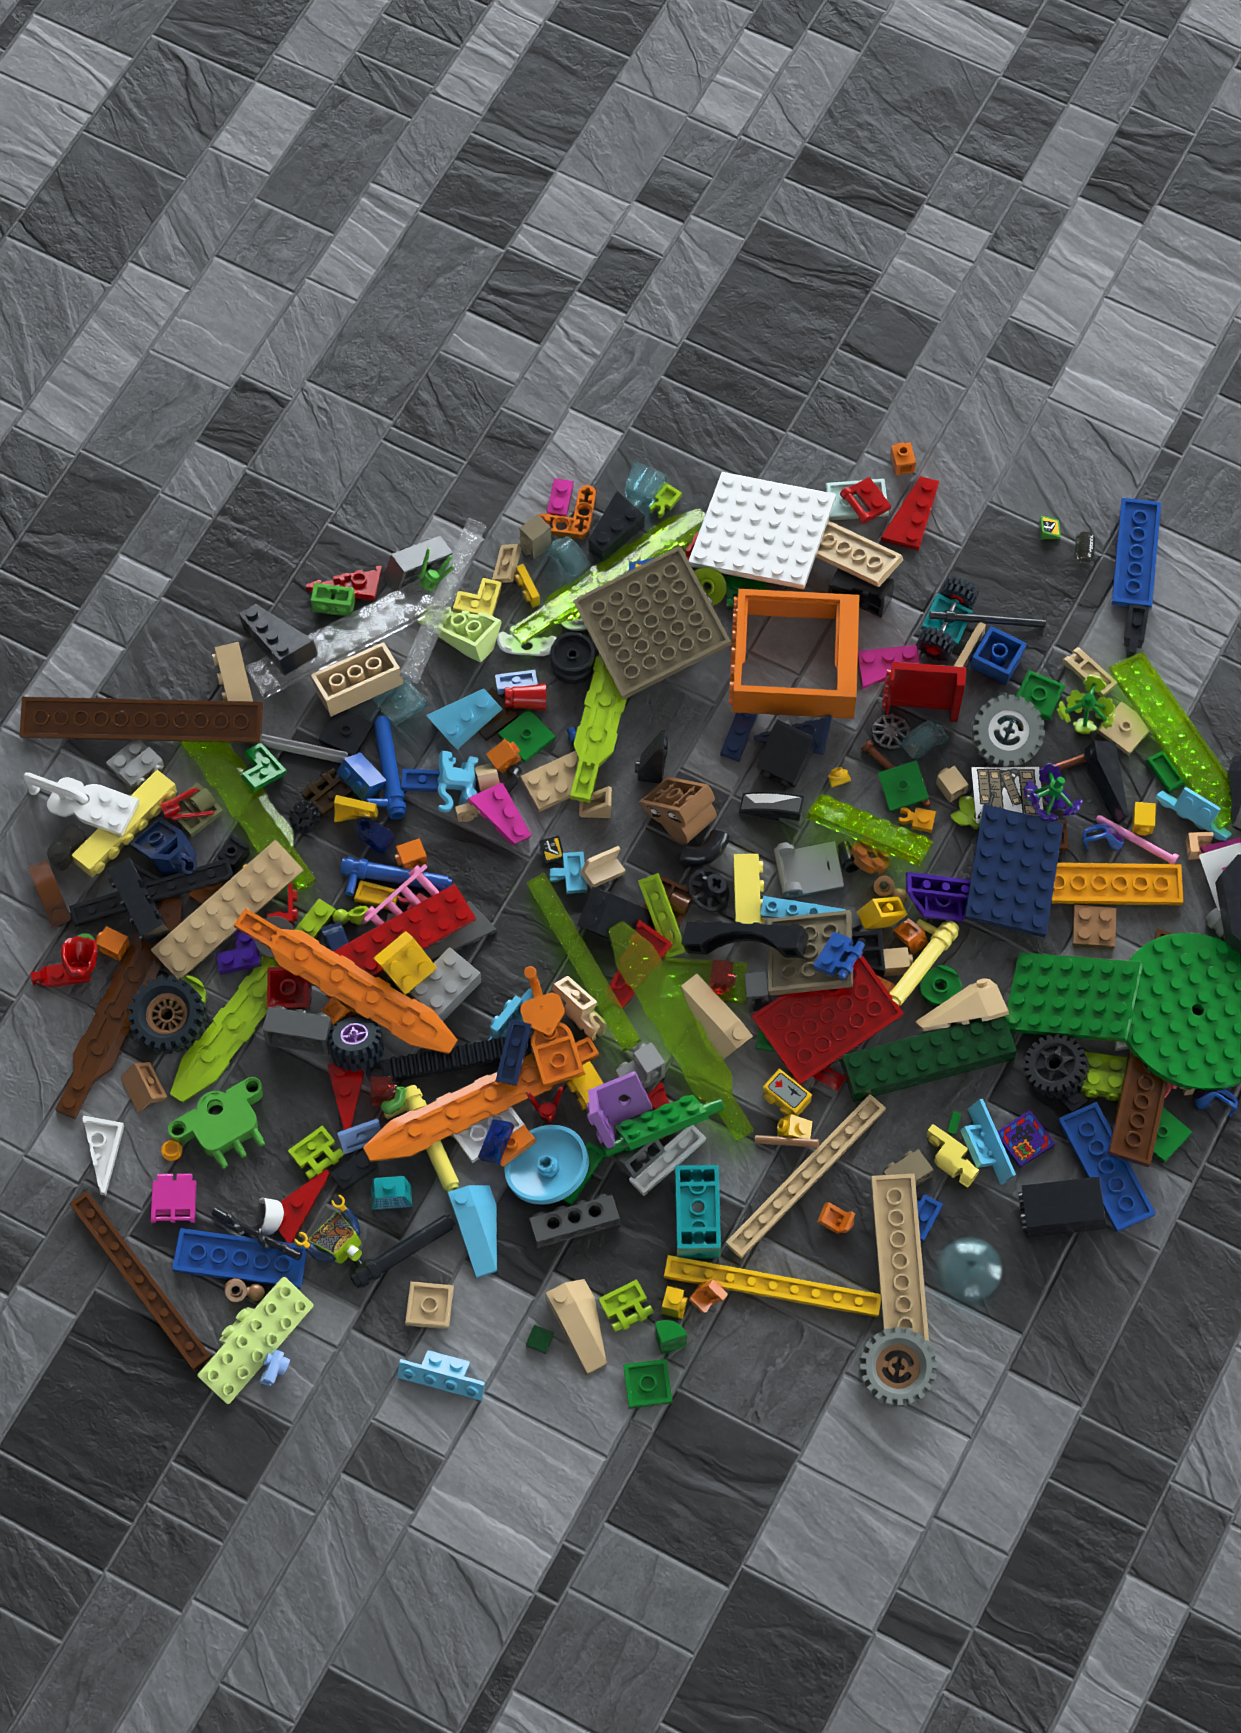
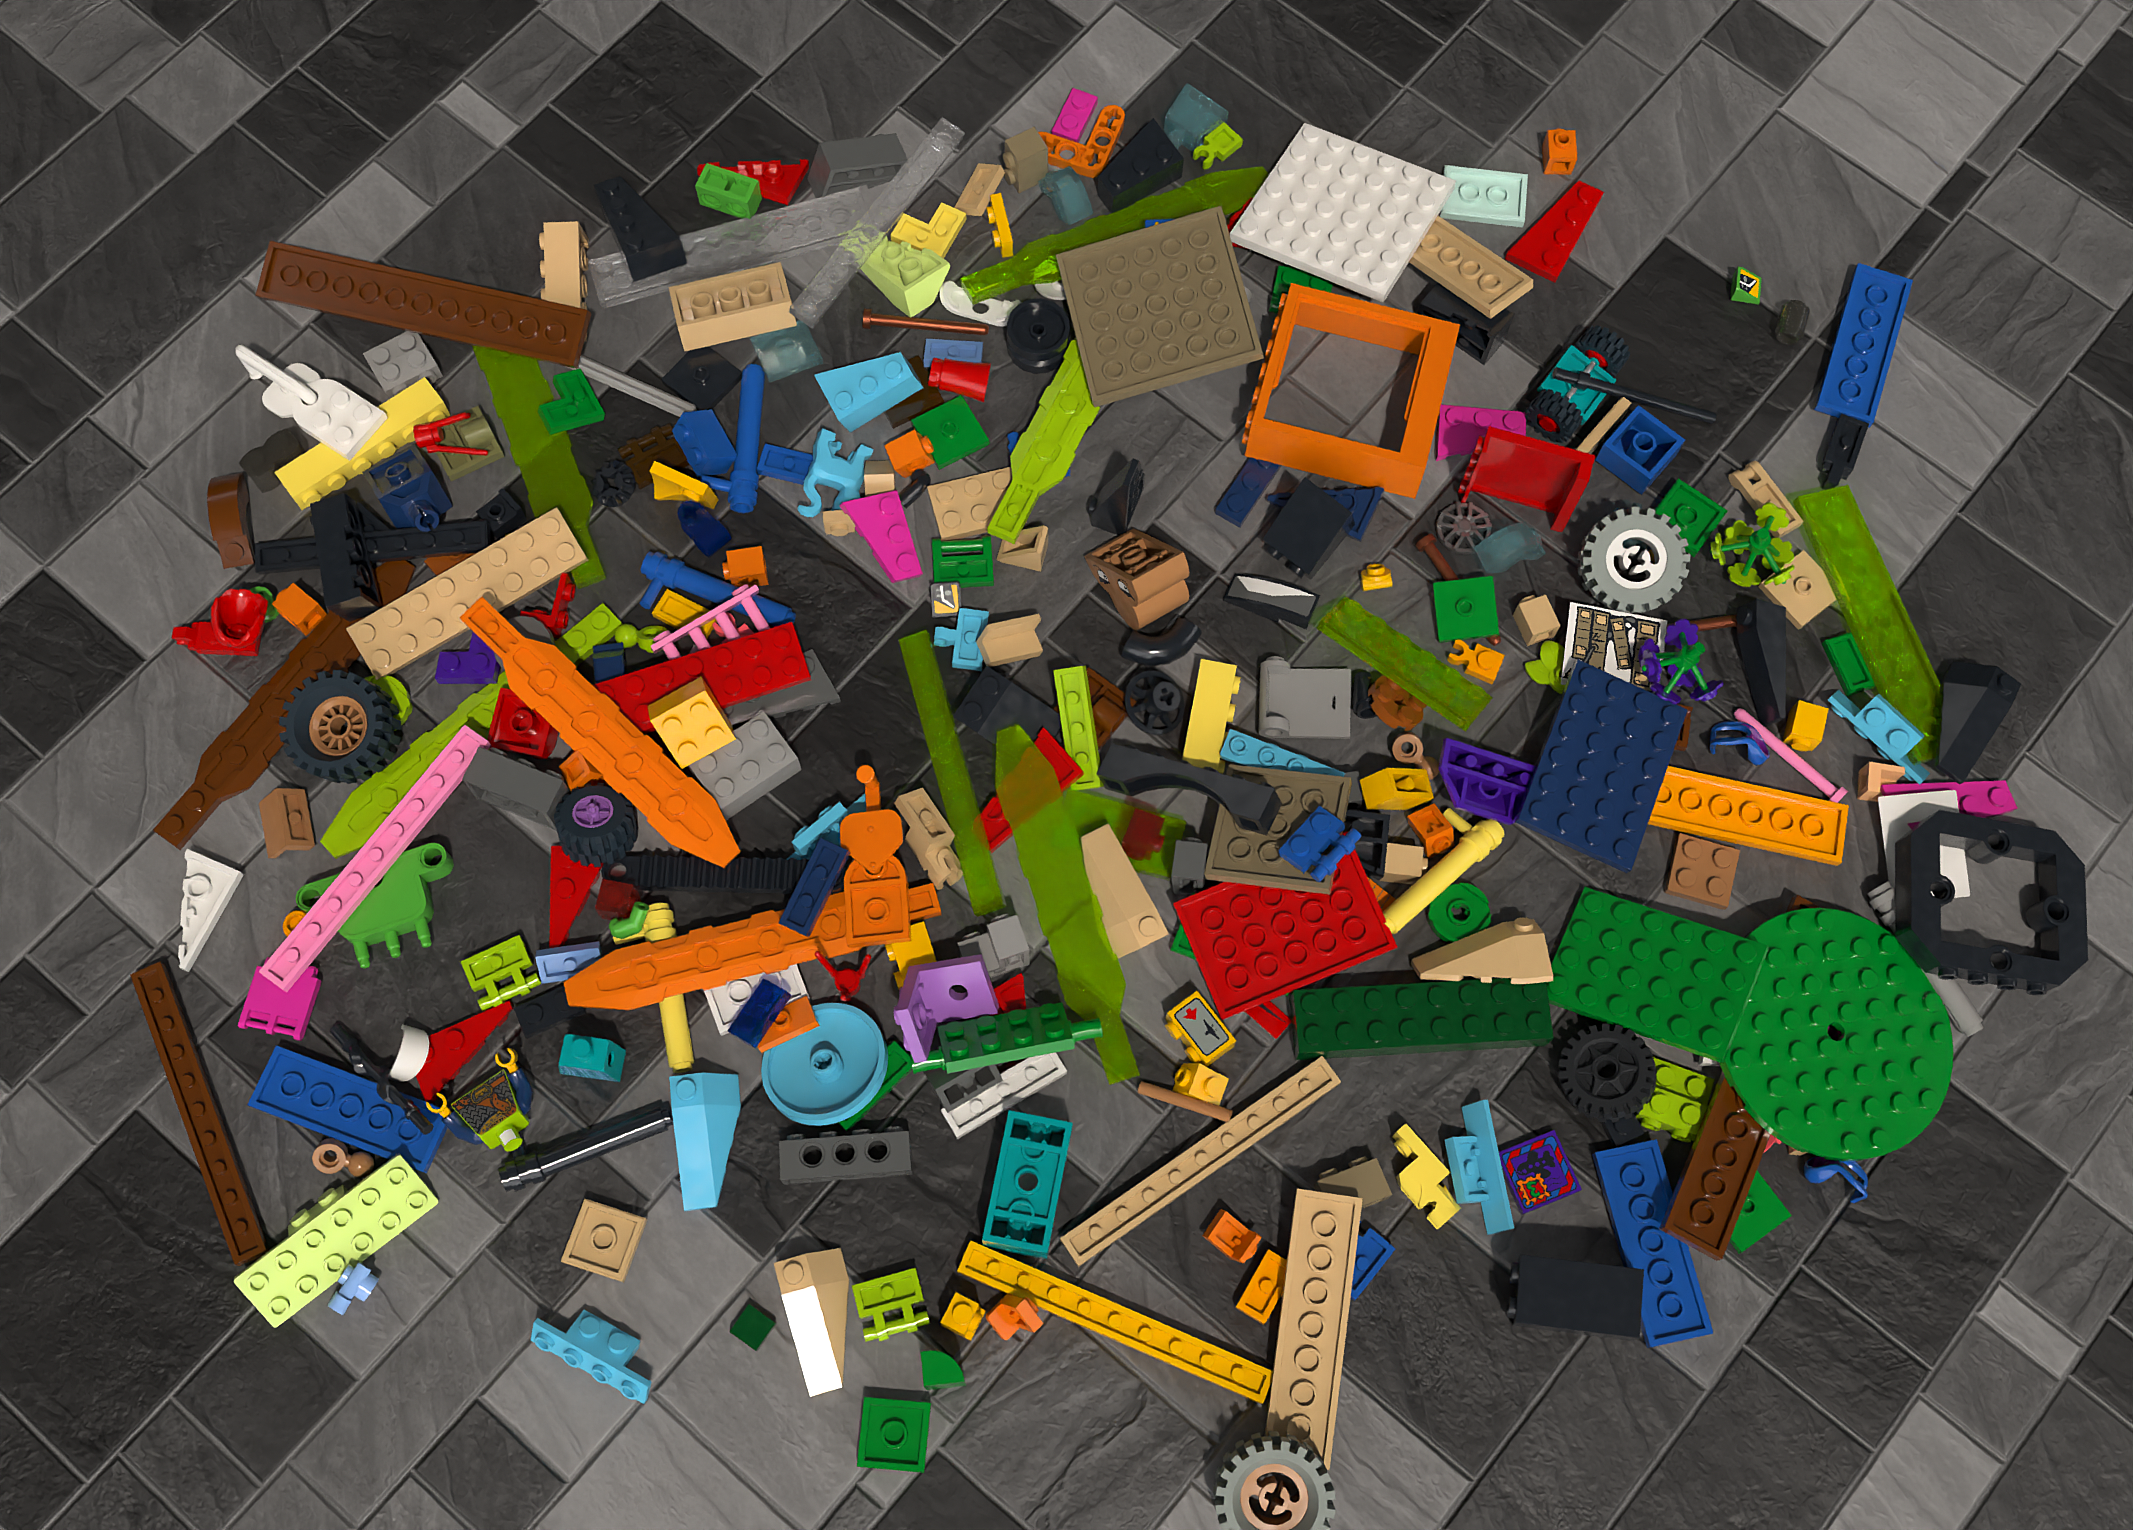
camera: 10 degrees right, 5 degrees up
(216, 1094) = (373, 860): none -> bright pink plate
(431, 578) = (870, 188): bright green plant -> none
(489, 665) = (922, 323): none -> copper bar
(563, 826) = (969, 569): none -> green plate
(717, 582) = (1264, 270): lime dish -> none
(863, 1246) = (1264, 1288): none -> light orange plate
(869, 496) = (1502, 194): red plate -> none
(953, 1122) = (1436, 1125): green tile -> none
(965, 1281) = (1399, 1373): clear light blue dish -> none

